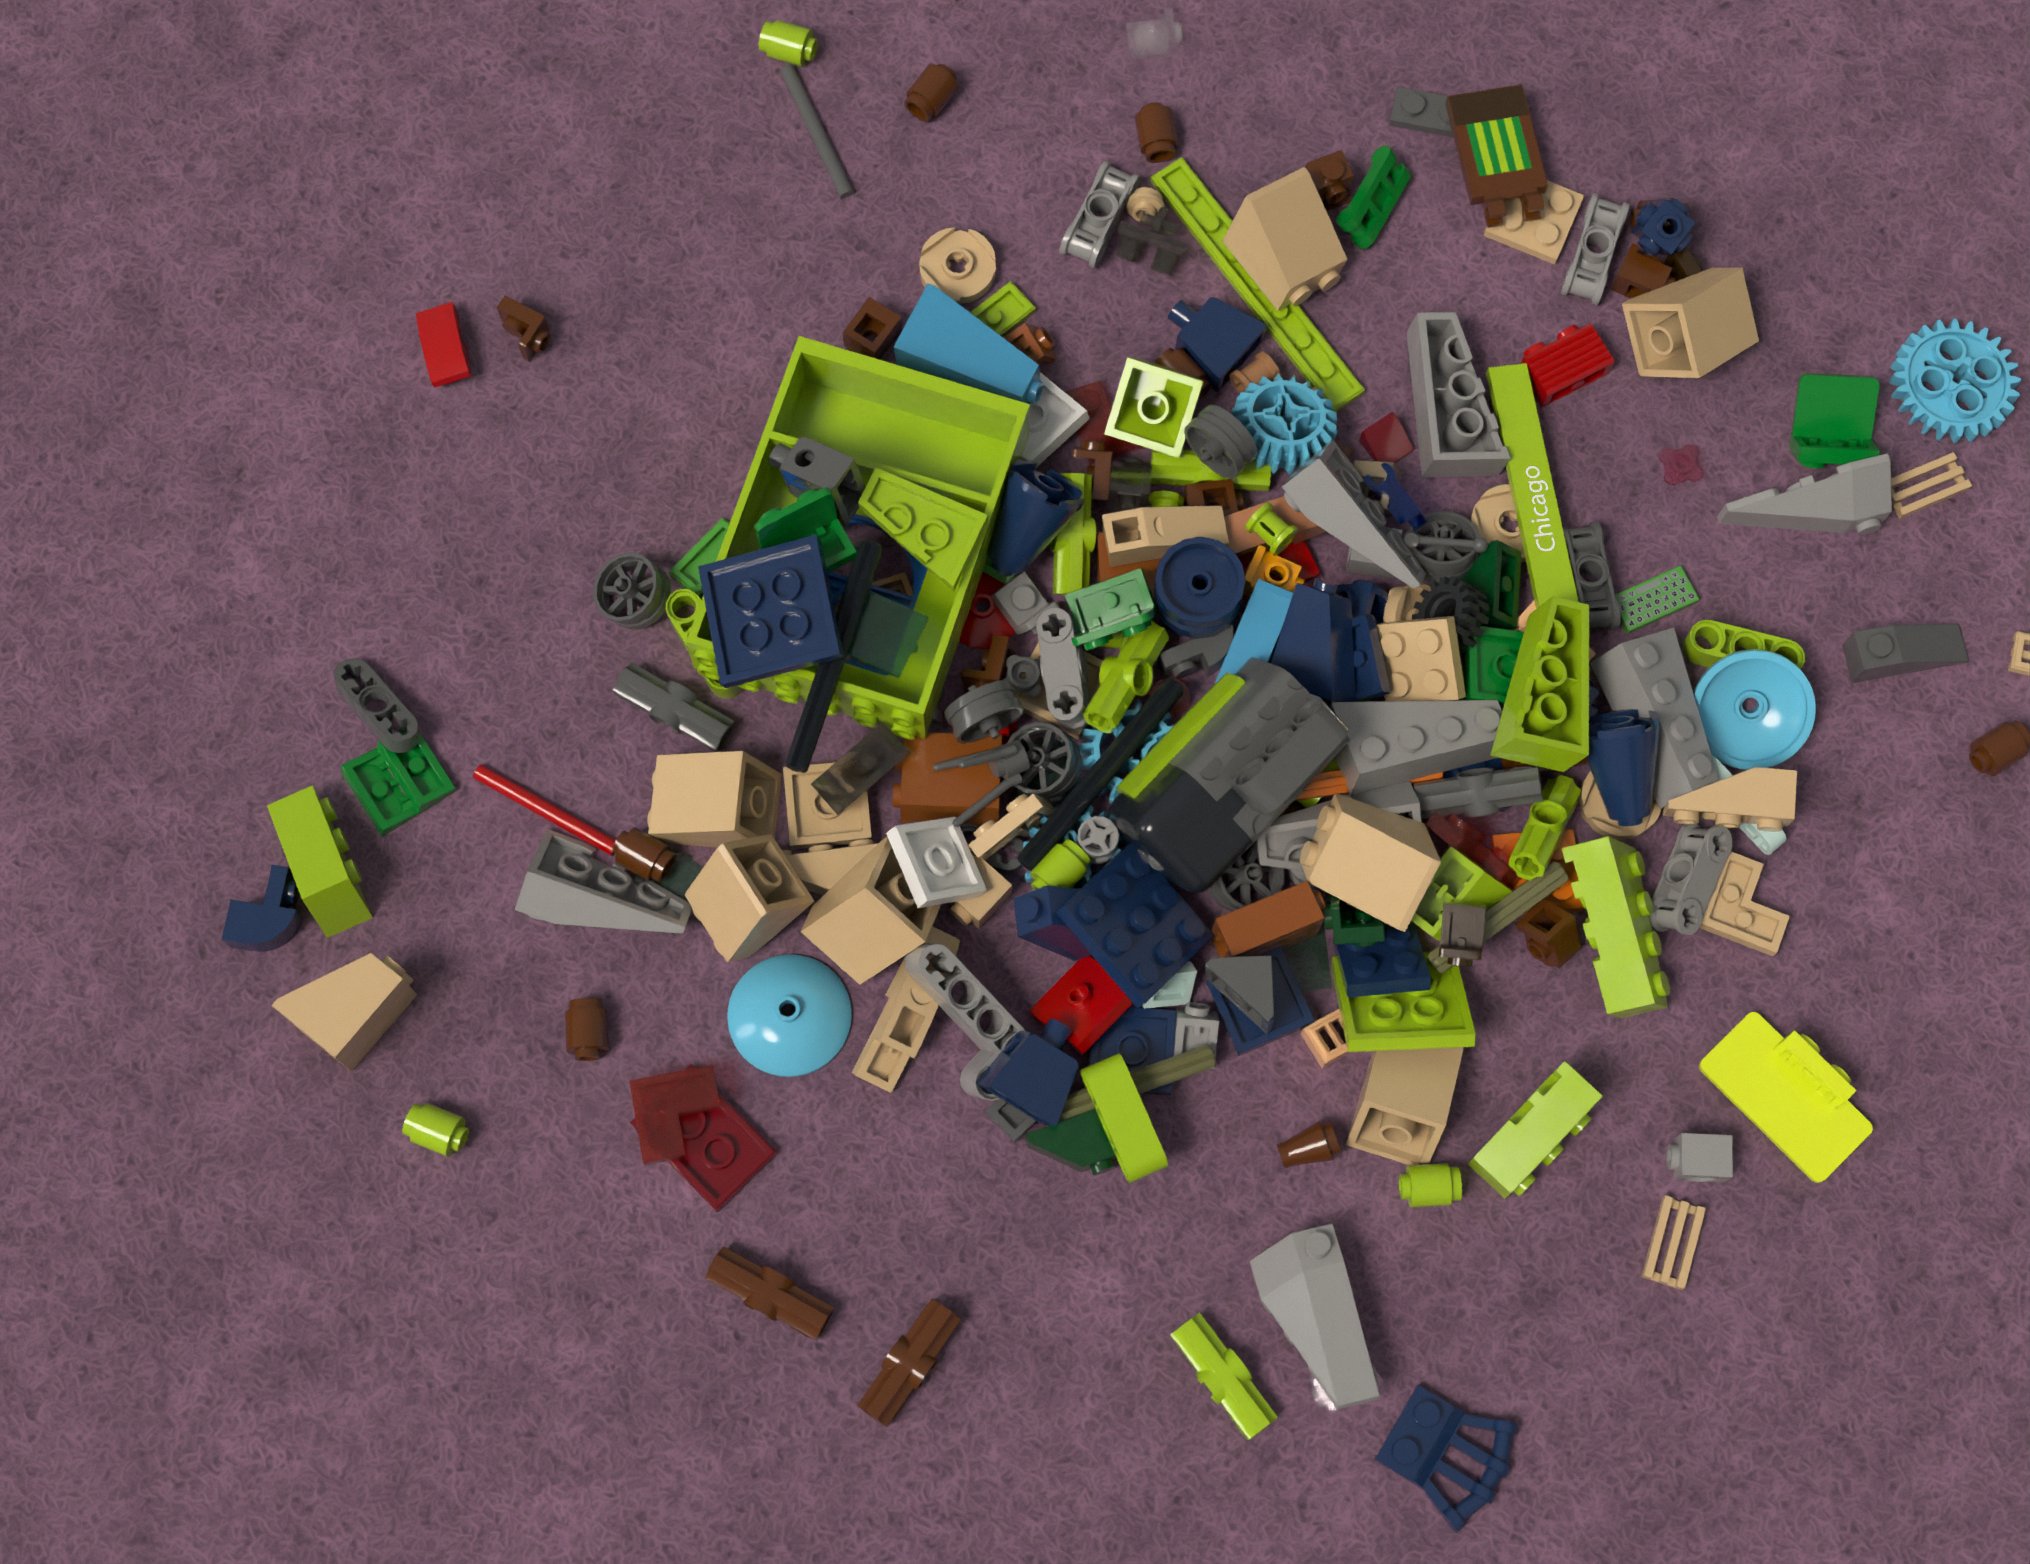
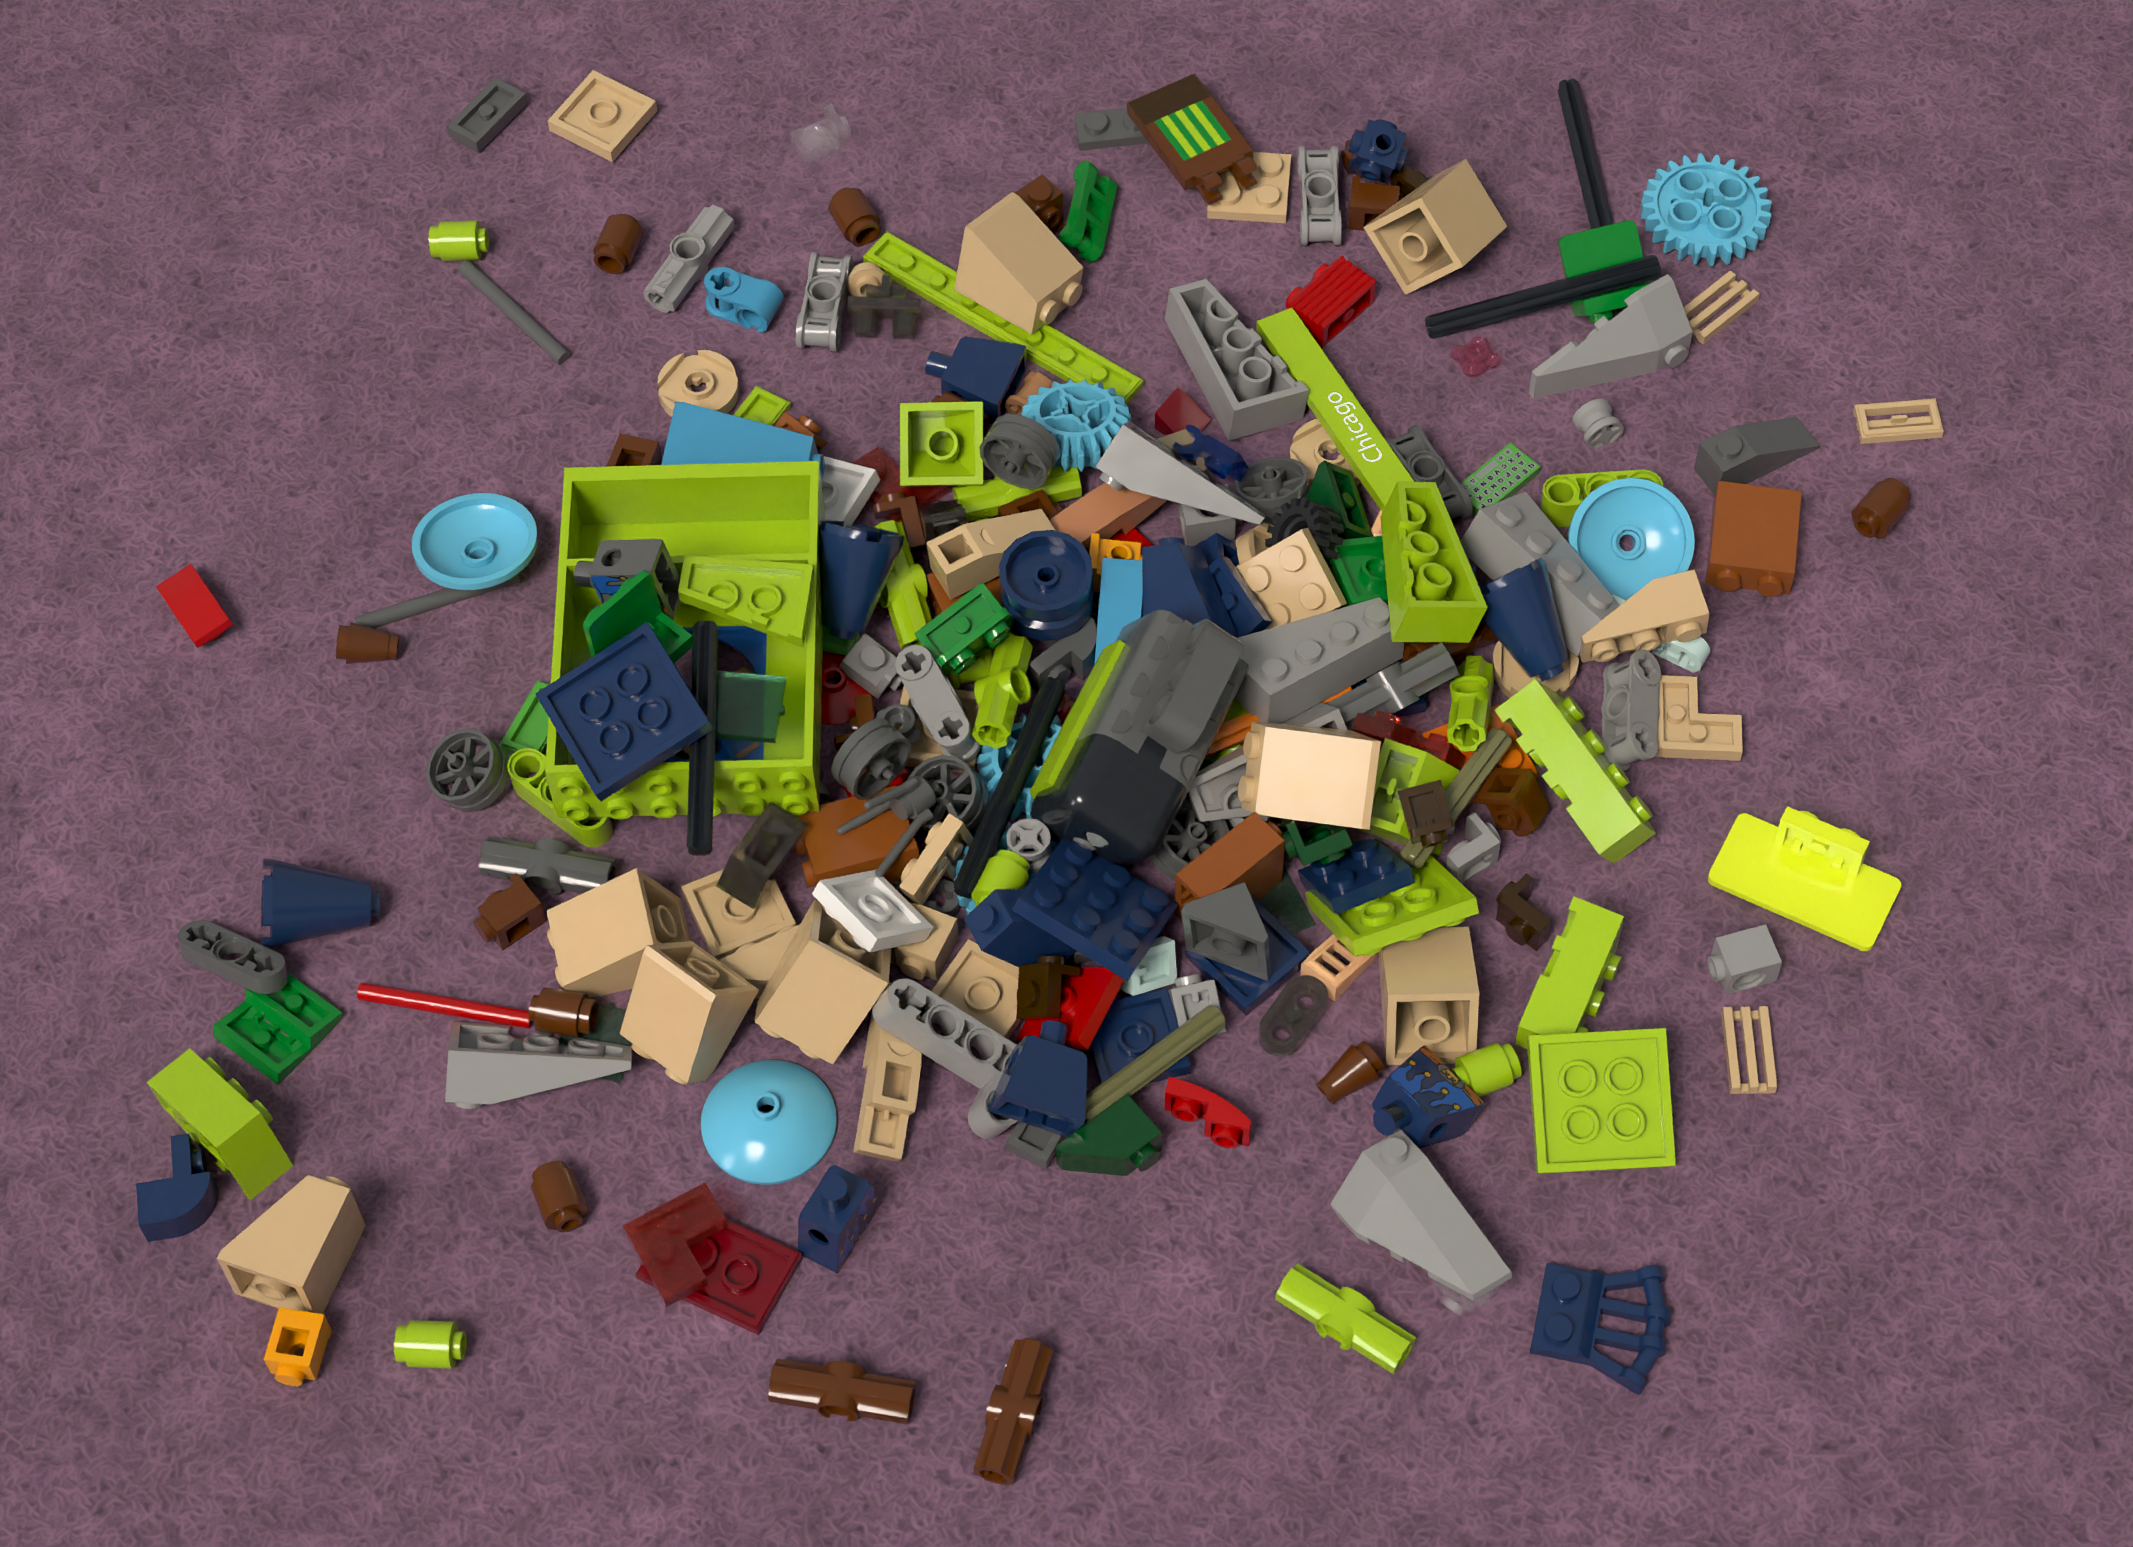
camera: 15 degrees left, 15 degrees down
(318, 1079) = (297, 1331): none -> light orange brick
(457, 678) = (312, 903): none -> dark blue cone
(524, 324) = (275, 561): reddish brown bracket -> none
(581, 432) = (365, 644): none -> reddish brown cone
(625, 743) = (509, 914): none -> reddish brown brick
(659, 406) = (423, 604): none -> dark grey bar
(703, 347) = (474, 541): none -> medium azure dish
(815, 1133) = (840, 1211): none -> dark blue torso
(976, 144) = (689, 258): none -> light grey piece
(1011, 966) = (982, 988): none -> tan plate
(1030, 191) = (745, 301): none -> dark azure piece
(1063, 978) = (1041, 988): none -> dark brown bracket
(1124, 1118) = (1152, 1092): lime beam -> none
(1180, 1153) = (1223, 1121): none -> red slope
(1271, 528) = (1088, 502): lime bush -> none
(1278, 1073) = (1292, 1018): none -> clear smoke plate
(1363, 1200) = (1425, 1101): none -> dark blue torso
(1412, 539) = (1241, 486): dark grey hinge -> none
(1490, 974) = (1479, 854): none -> light grey bracket
(1515, 1053) = (1521, 920): none -> dark brown bracket
(1520, 1254) = (1601, 1100): none -> lime plate
(1766, 426) = (1543, 296): none -> black axle
(1768, 573) = (1597, 423): none -> light grey wheel
(1861, 287) = (1584, 154): none -> black axle
(1869, 740) = (1753, 538): none -> dark orange brick

